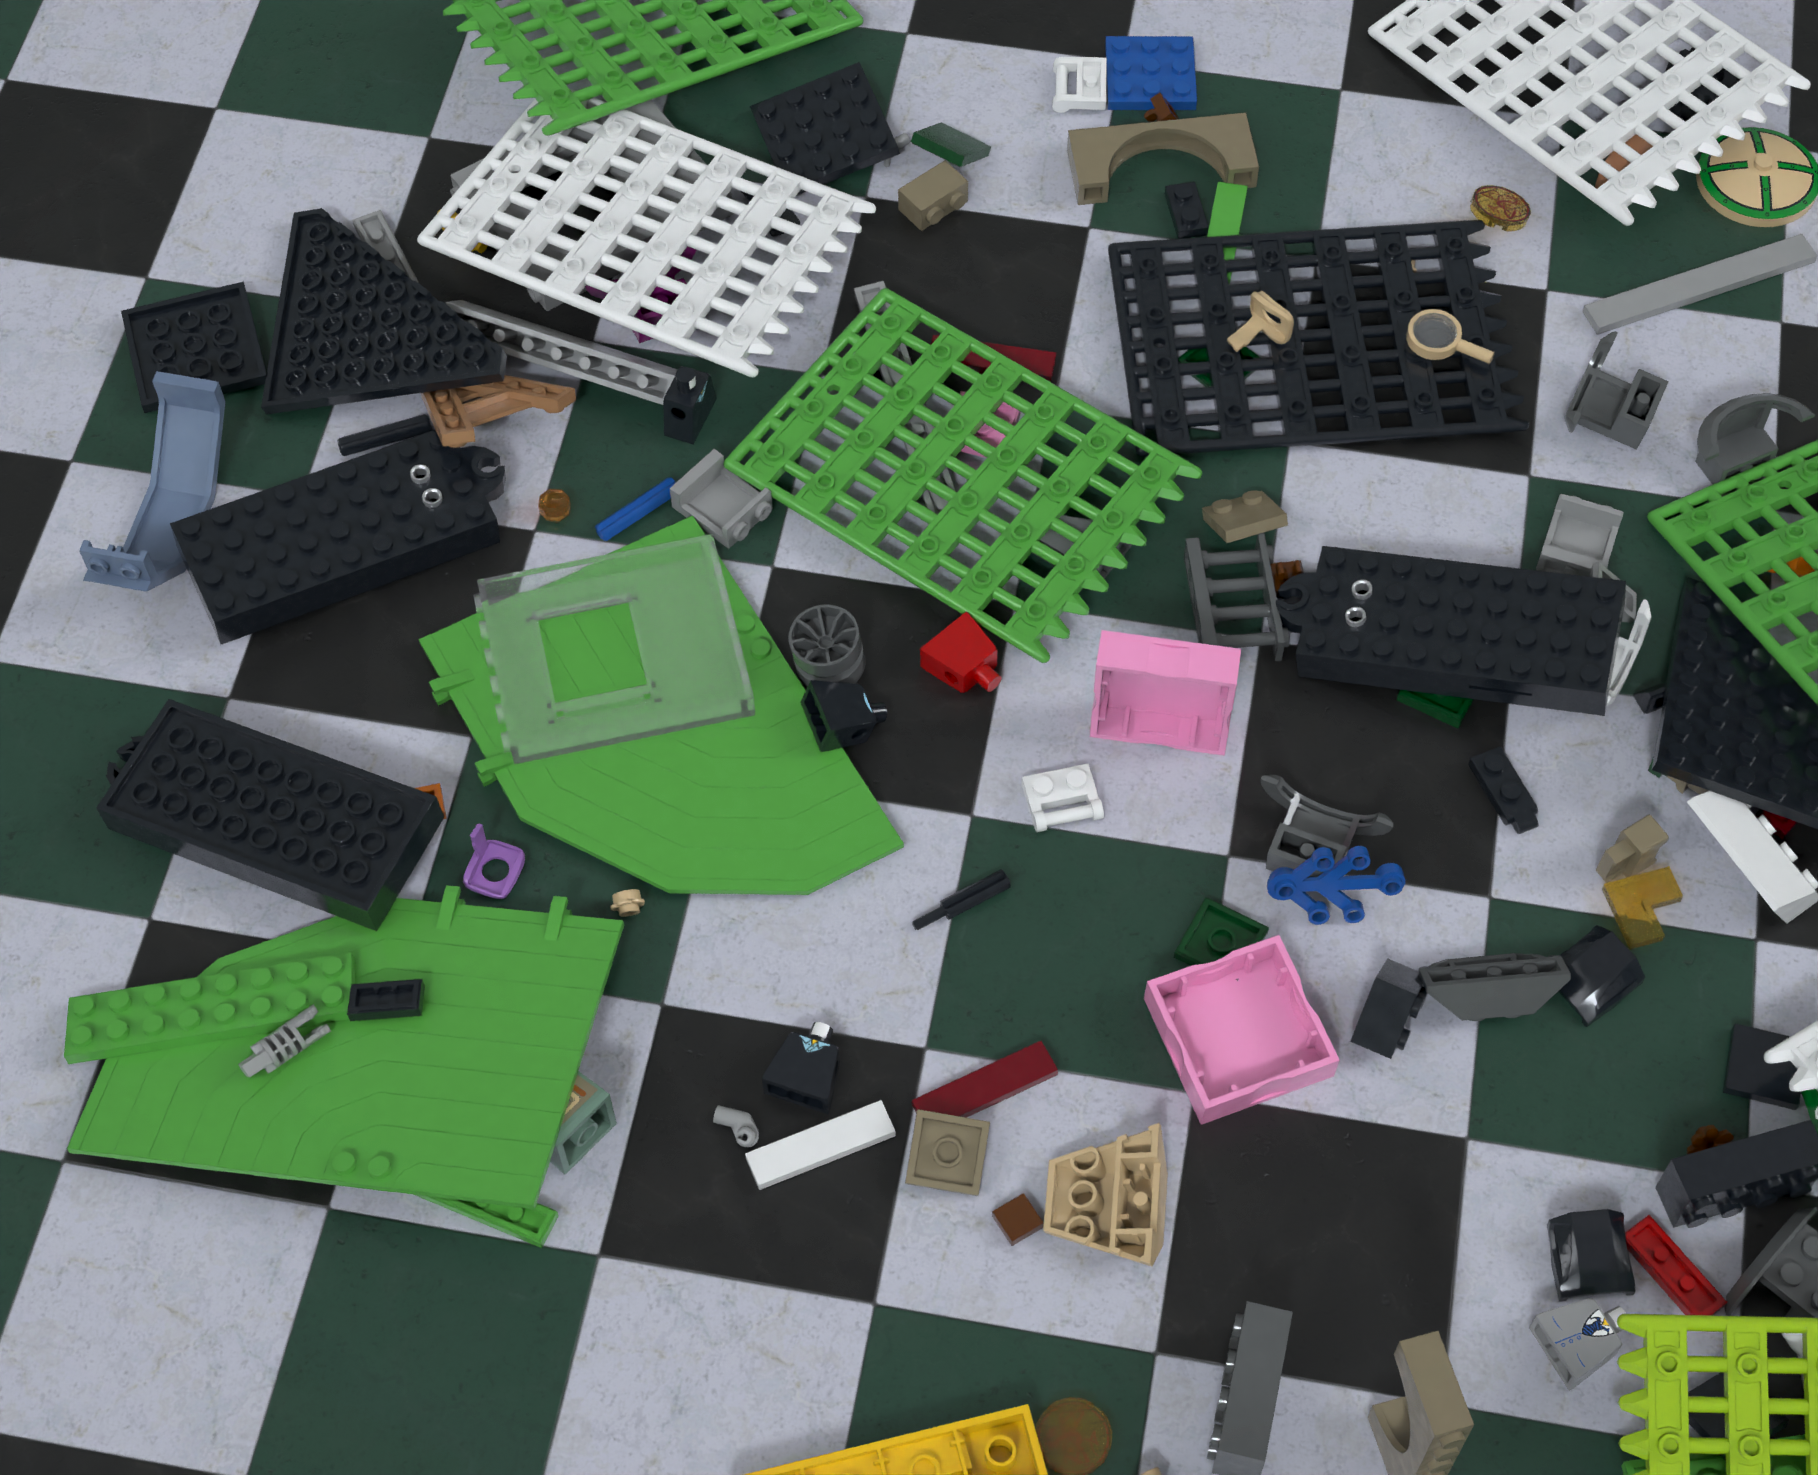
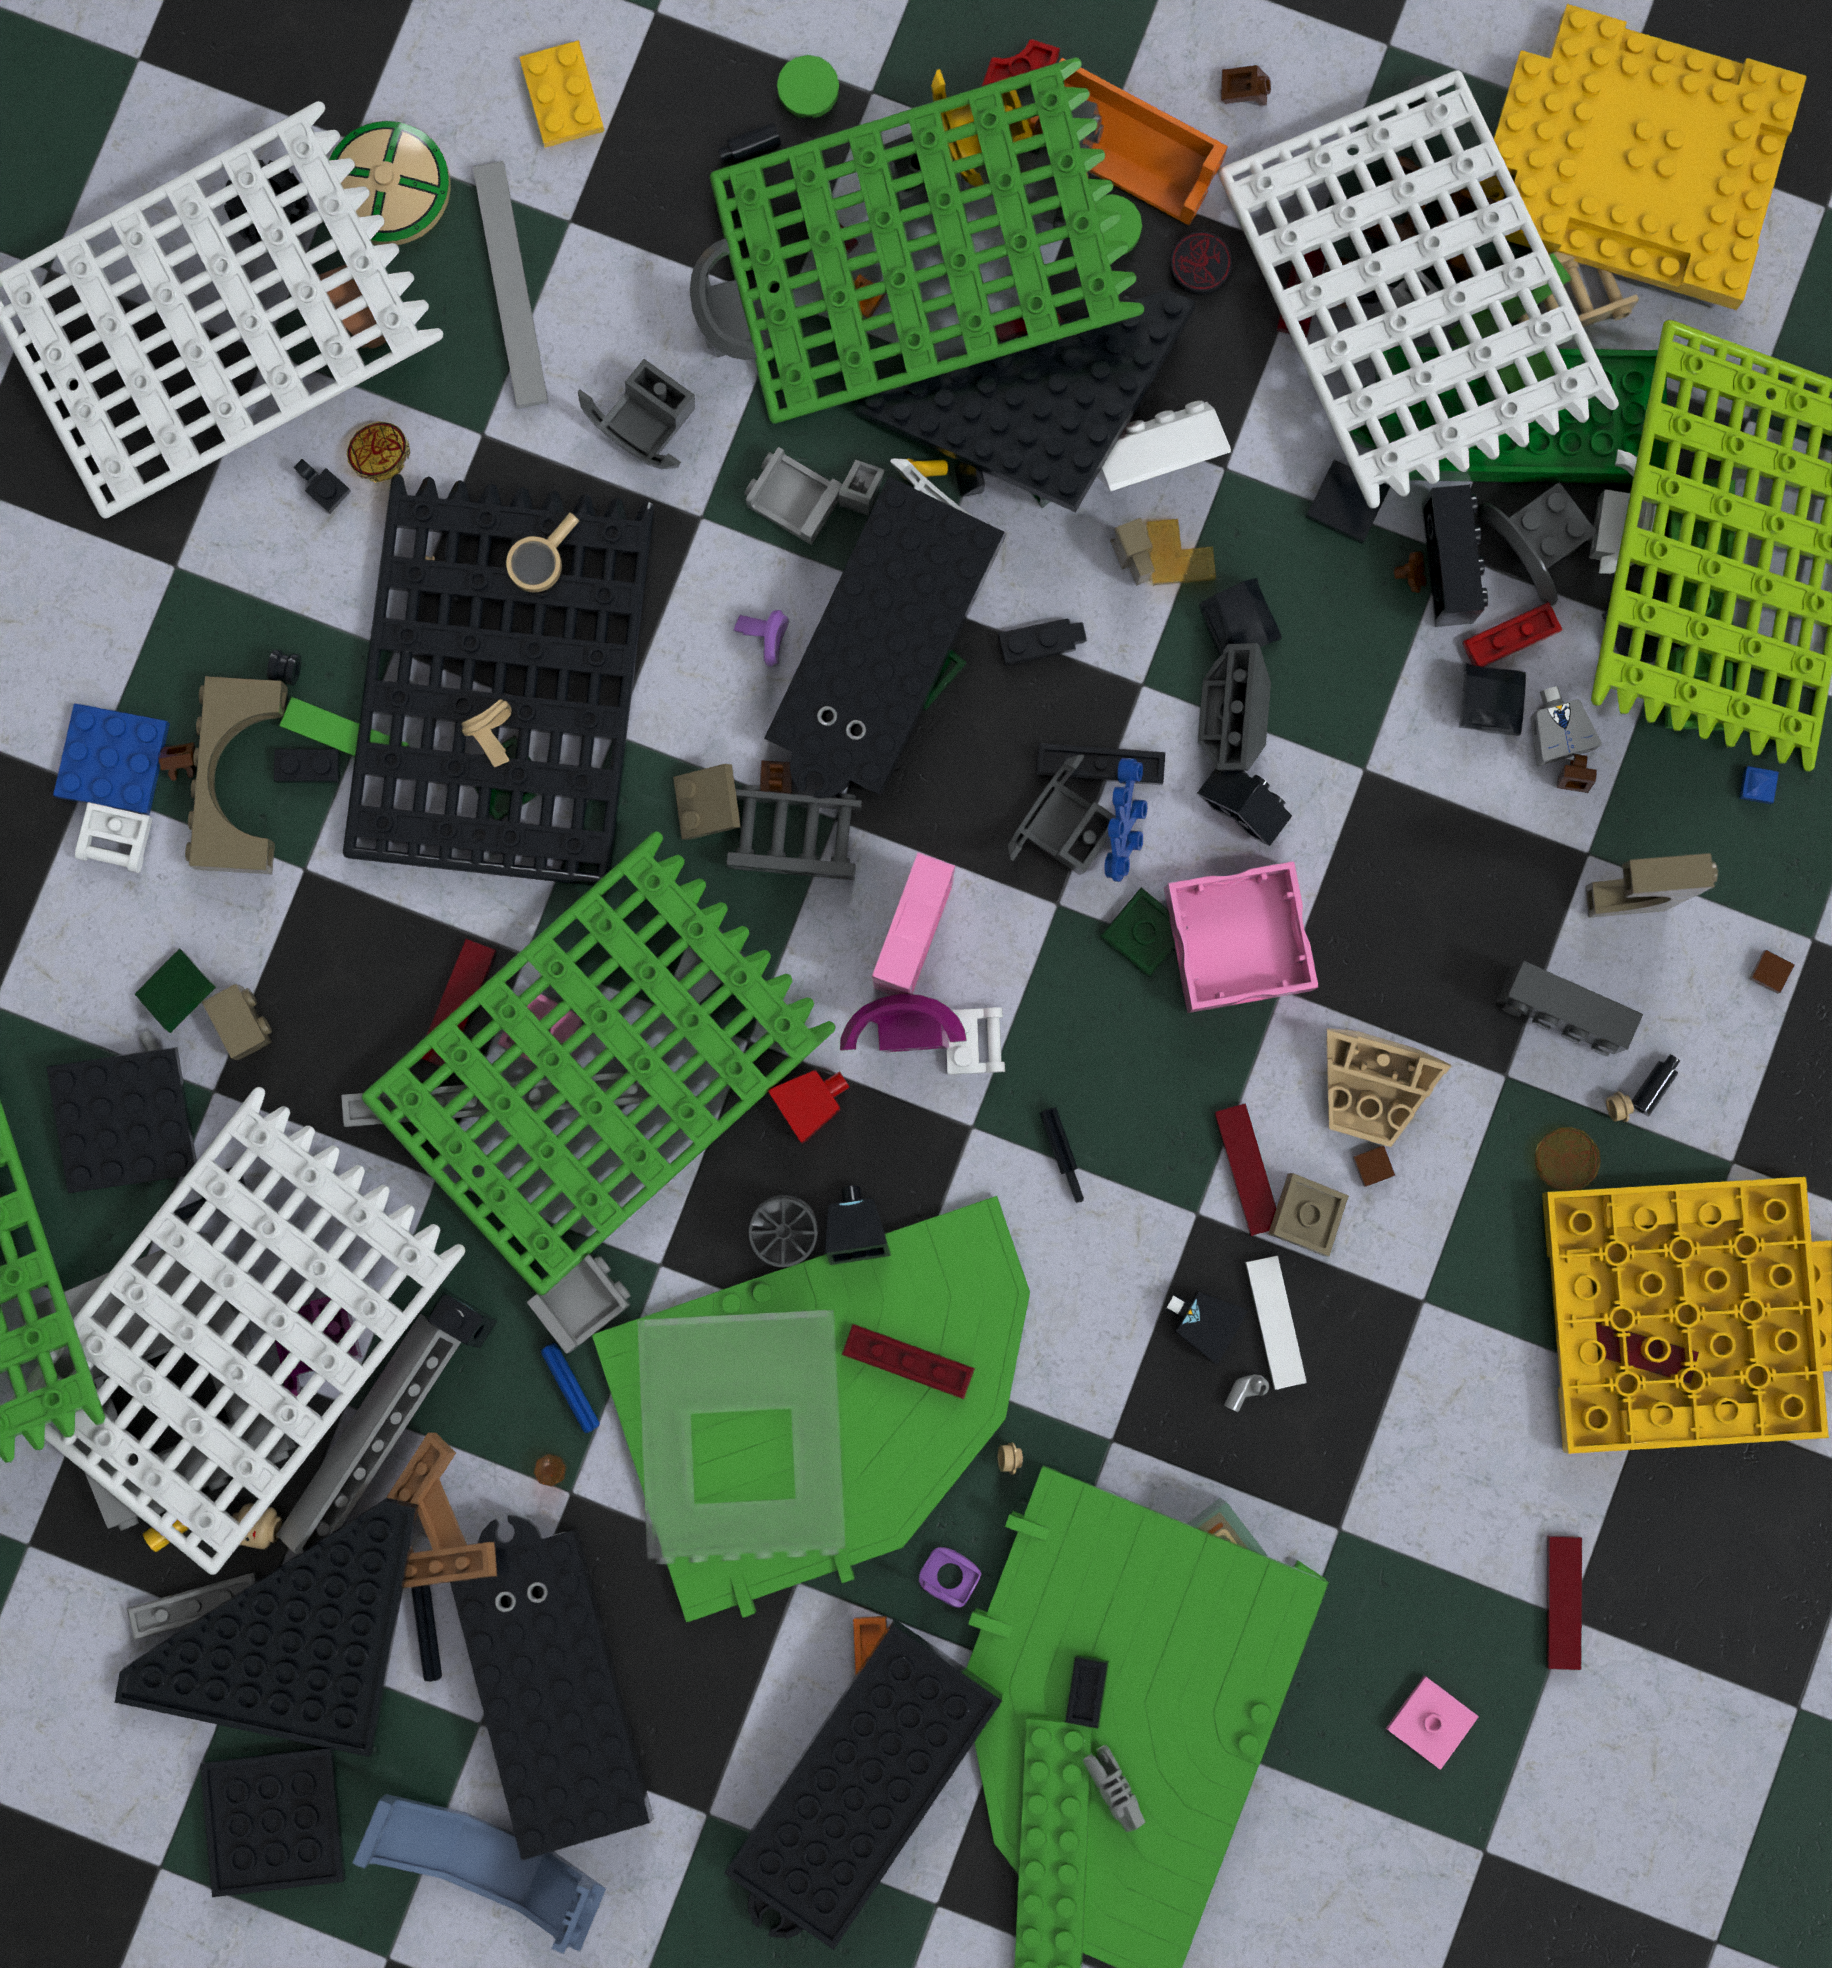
camera: 80 degrees left, 25 degrees up
(390, 1390) = (1432, 1722): none -> bright pink plate
(467, 284) = (263, 1531): none -> tan head
(713, 788) = (908, 1361): none -> dark red tile
(1063, 720) = (905, 1024): none -> magenta piece
(1273, 174) = (284, 667): none -> black wheel
(1399, 911) = (1099, 762): none -> black tile
(1440, 540) = (771, 630): none -> medium lavender piece
(1453, 178) = (323, 488): none -> black plate
(1530, 1366) = (1577, 776): none -> reddish brown tile
(1651, 653) = (930, 467): none -> yellow arm

